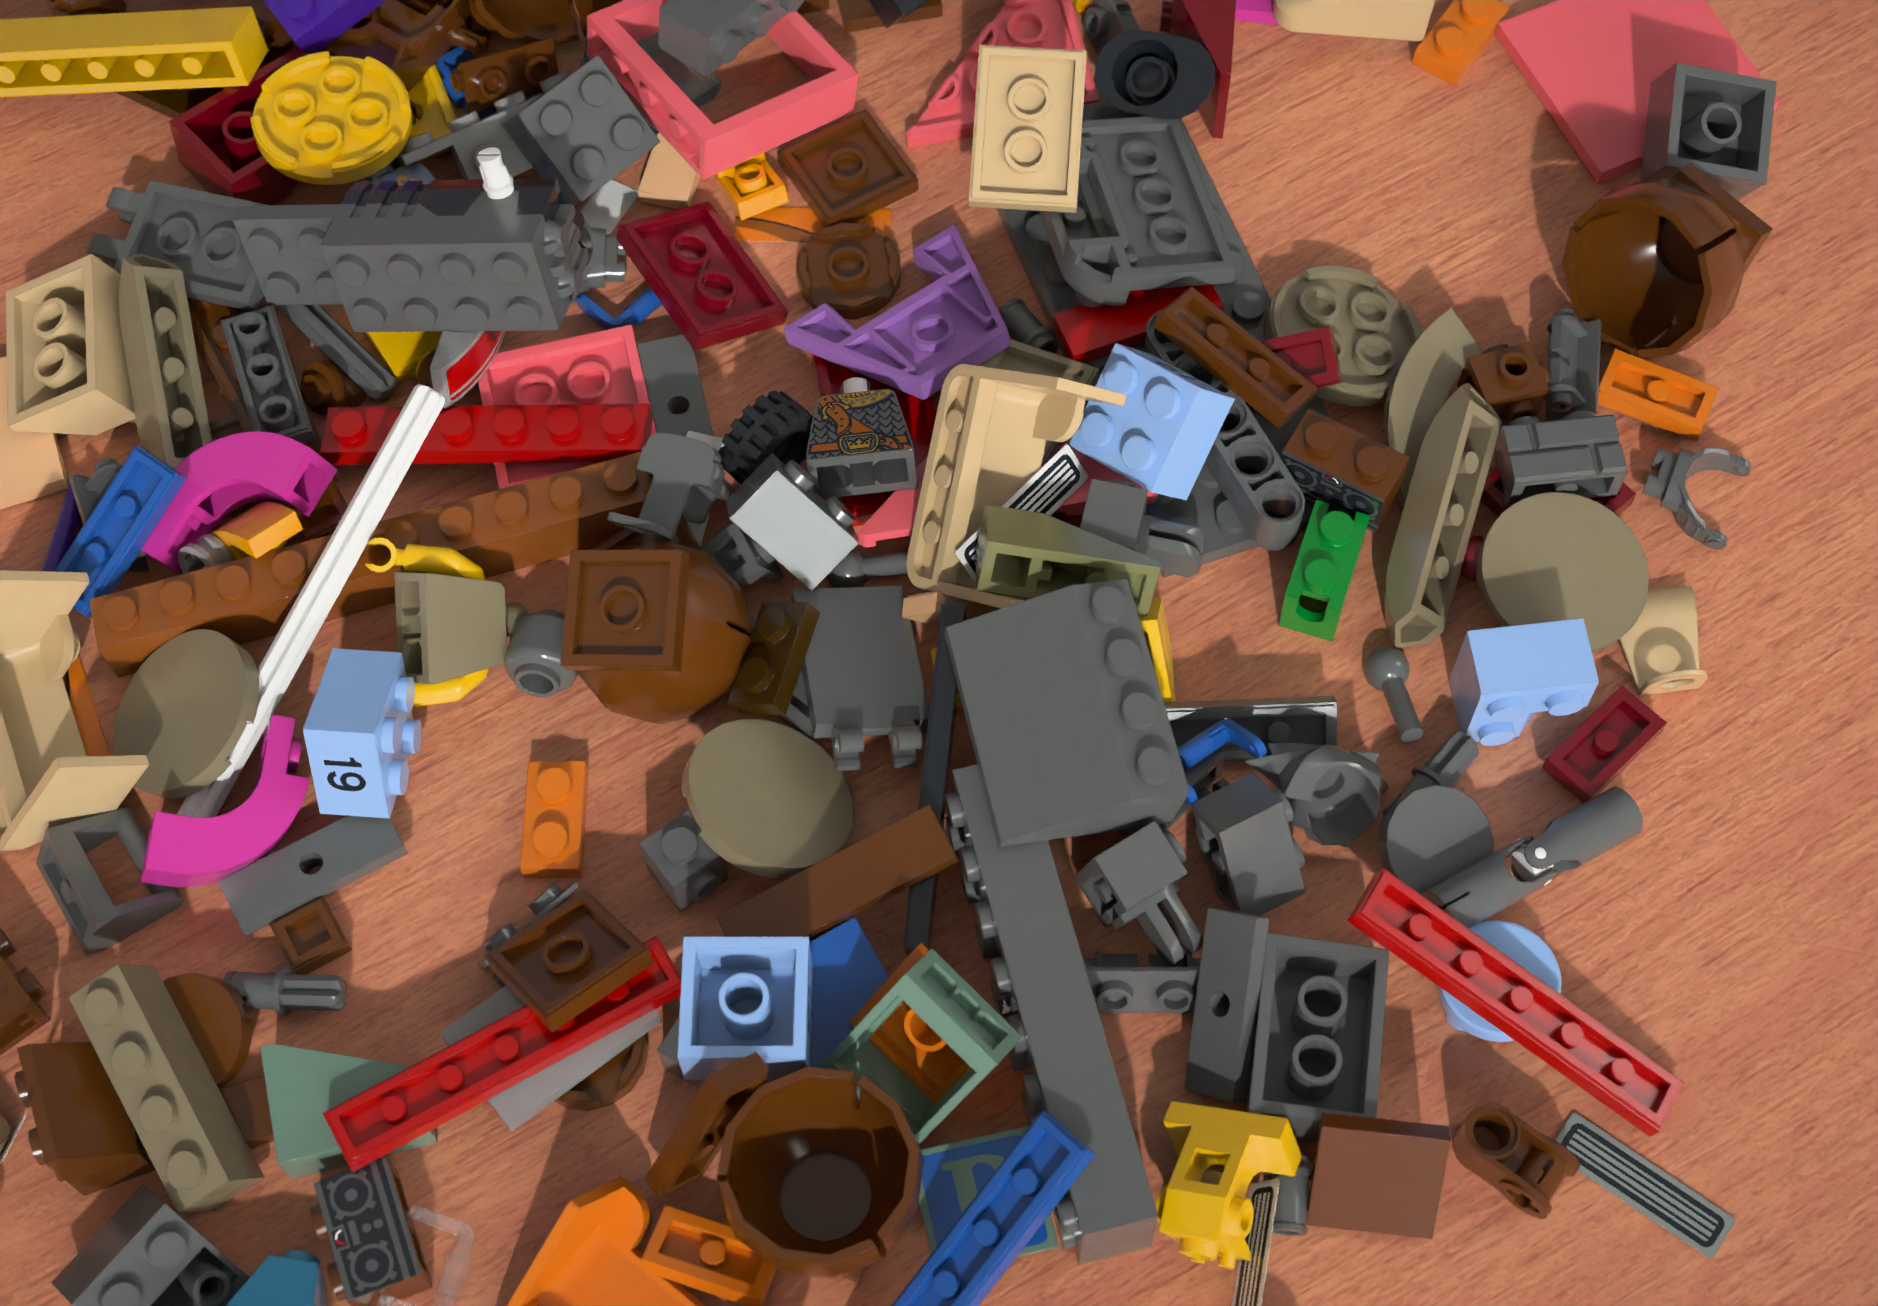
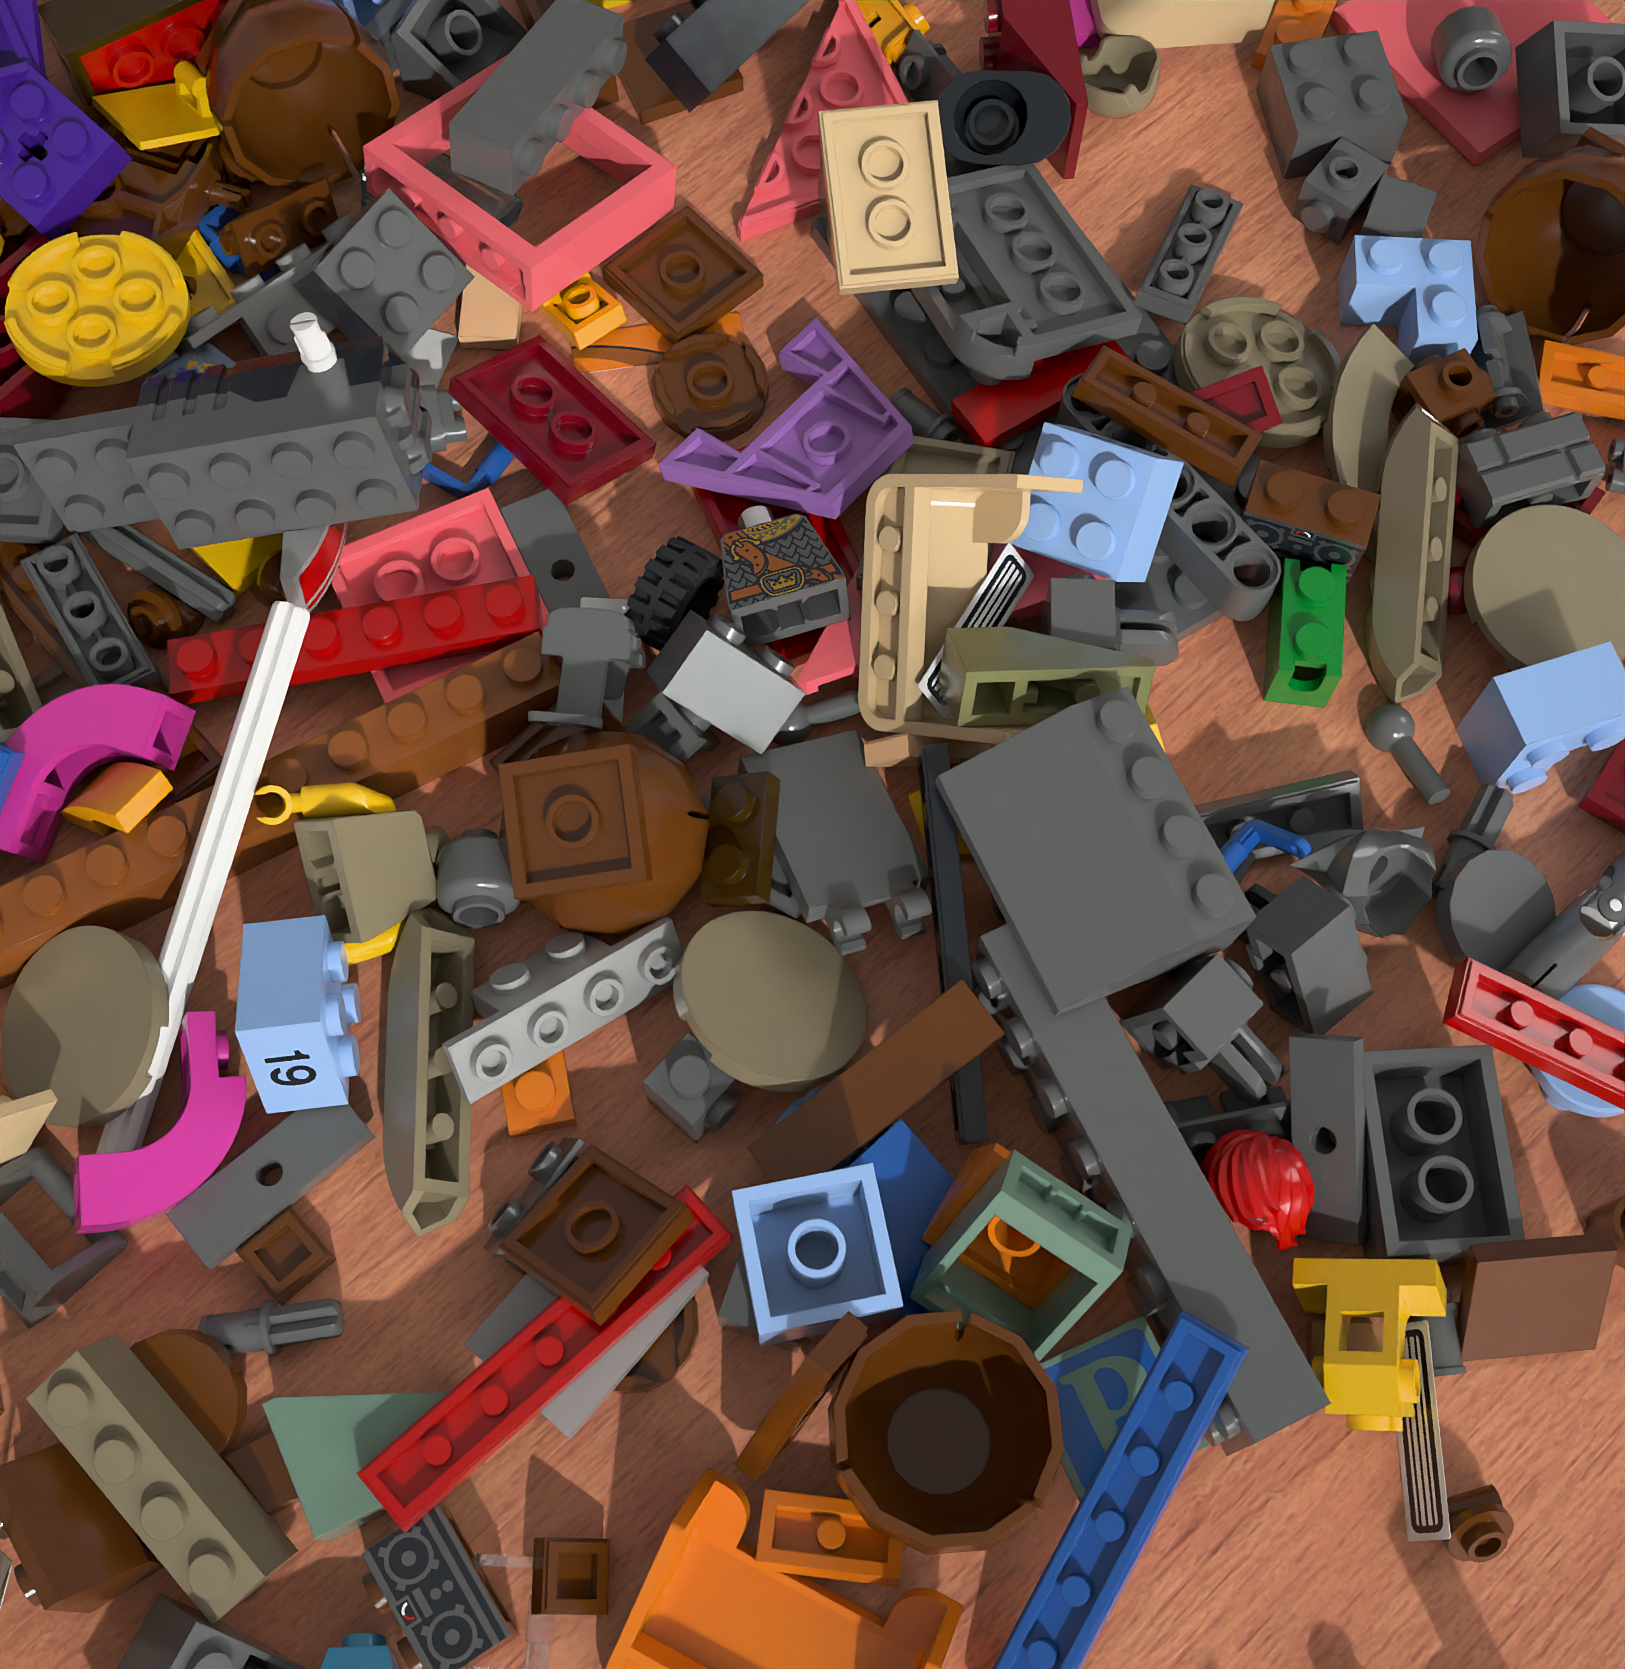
camera: 15 degrees left, 5 degrees up
(204, 553) = (62, 836): light grey bush -> none
(464, 804) = (423, 1106): none -> dark tan brick
(484, 1244) = (570, 1576): none -> reddish brown tile
(585, 766) = (557, 1000): none -> light grey bracket
(1153, 1028) = (1261, 1183): none -> red hair
(1280, 55) = (1121, 76): none -> dark tan hair
(1305, 221) = (1188, 254): none -> dark grey tile
(1459, 186) = (1339, 190): none -> dark grey brick
(1470, 108) = (1330, 91): none -> dark grey brick
(1500, 225) = (1398, 209): none -> dark grey brick
(1502, 281) = (1412, 286): none -> light blue brick
(1610, 78) = (1471, 49): none -> dark grey head

